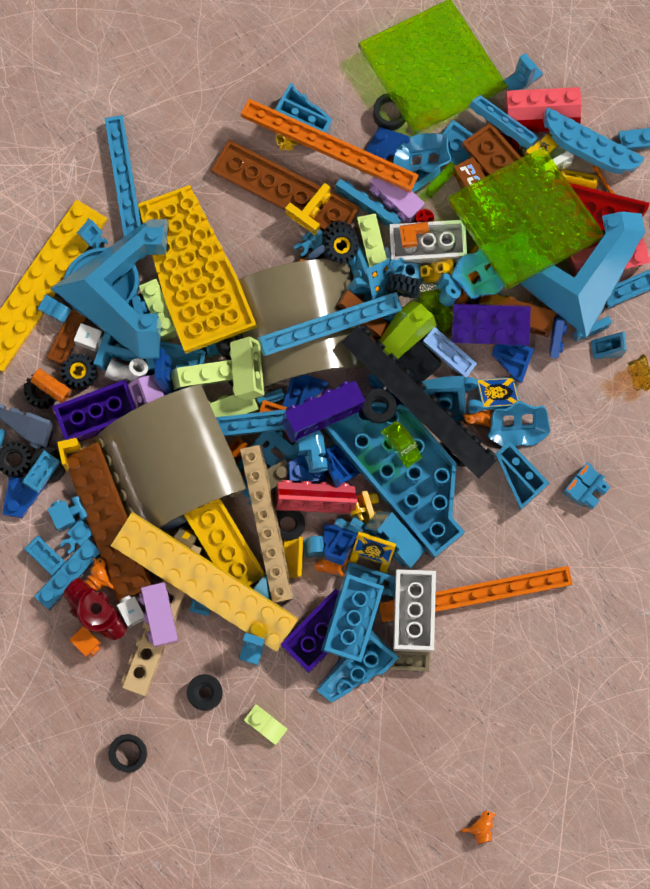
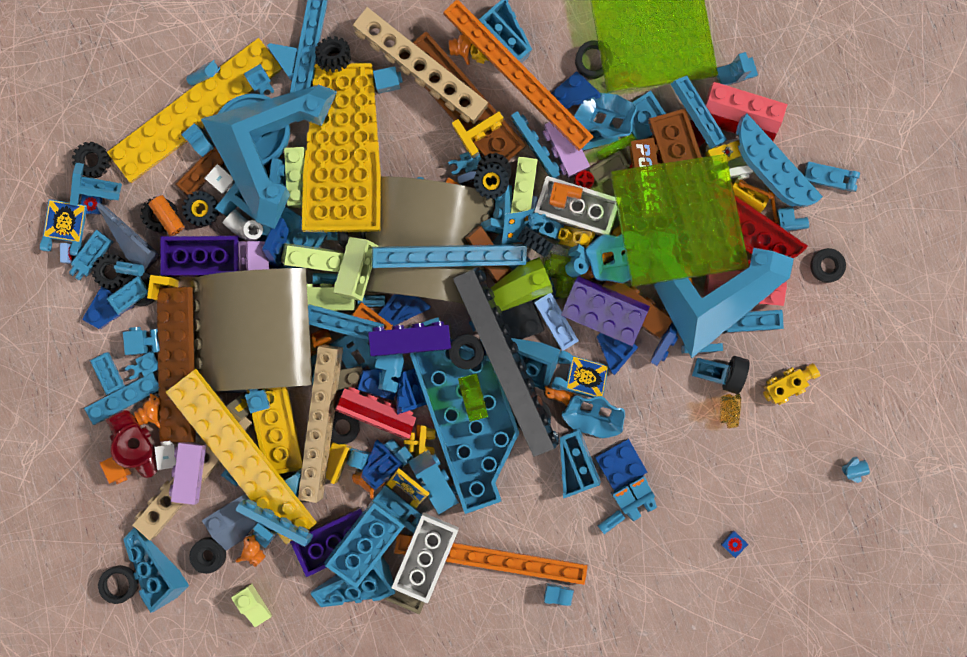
camera: 25 degrees right, 10 degrees up
(33, 446) = (129, 268): none -> dark azure piece
(36, 249) = (203, 73): none -> dark azure piece
(108, 207) = (285, 56): none -> dark azure slope
(154, 195) = (333, 46): none -> black tyre
(162, 730) = (156, 574): none -> dark azure wedge
(199, 522) = (257, 400): none -> dark azure plate
(210, 194) = (387, 79): none -> dark azure brick
(212, 156) = (369, 20): none -> tan brick
(216, 393) = (320, 278): none -> dark azure piece
(218, 649) = (229, 526): none -> sand blue wedge
(245, 672) = (251, 551): none -> orange animal
(266, 142) = (460, 47): none -> orange animal
(268, 628) = (280, 525): none -> dark azure plate
(439, 203) = (603, 169): none -> dark tan tile
(551, 603) = (558, 594): none -> dark azure leg
(561, 462) = (621, 464): none -> blue plate
(573, 519) = (611, 522): none -> dark azure piece
(597, 172) = (742, 184): none -> orange hinge
(621, 187) = (788, 221): none -> dark azure piece
(634, 339) = (737, 374): none -> black tyre

